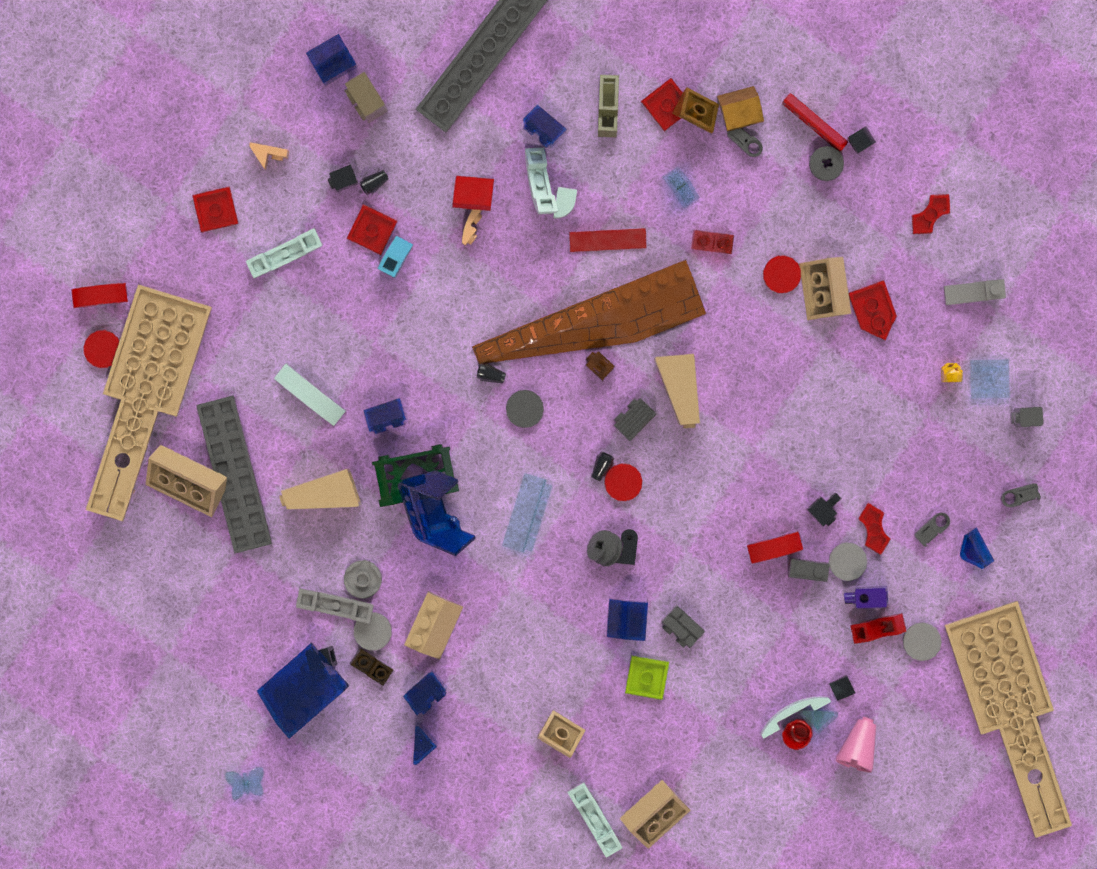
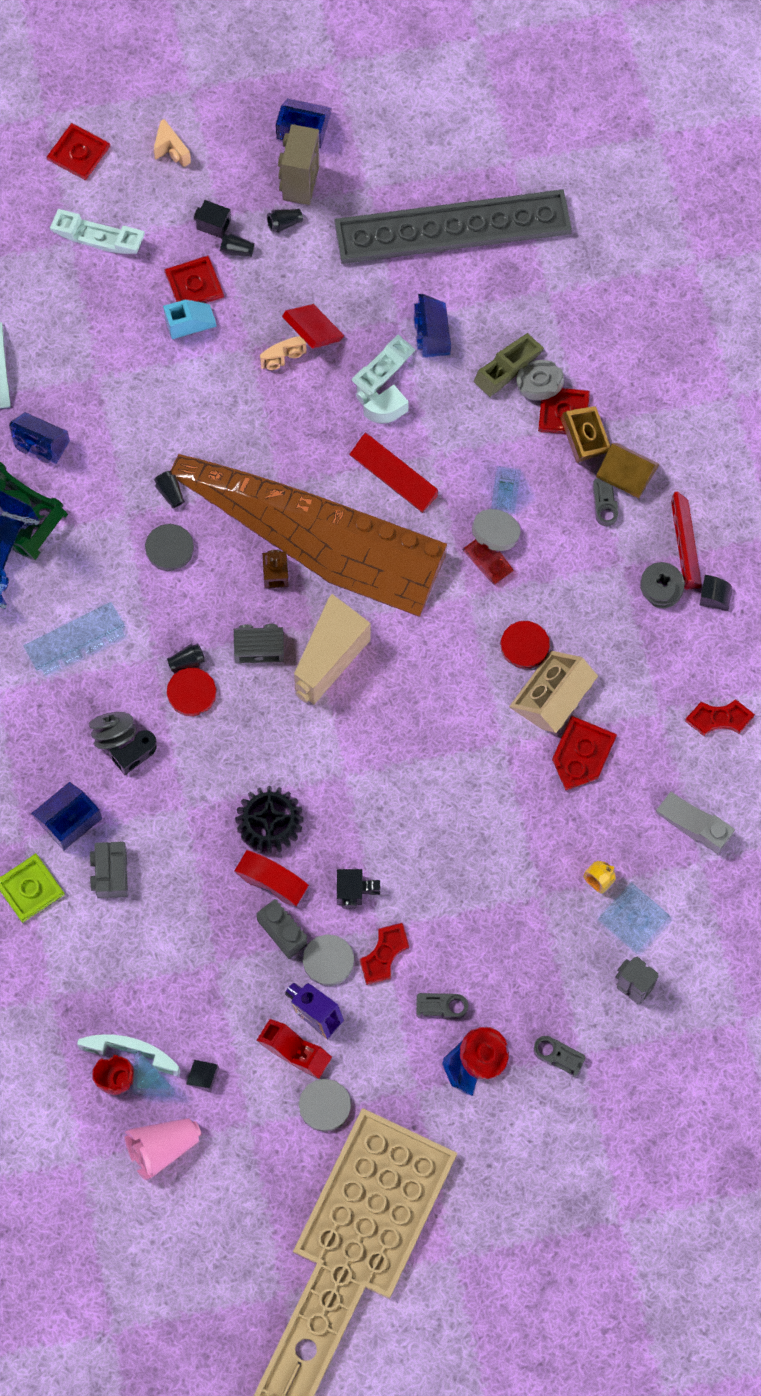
camera: 40 degrees right, 20 degrees down
(384, 137) = (283, 218): none -> black cone
(636, 99) = (540, 380): none -> light grey tile
(701, 220) = (496, 529): none -> light grey tile
(752, 503) = (294, 819): none -> black gear
(981, 534) = (484, 1052): none -> red tile

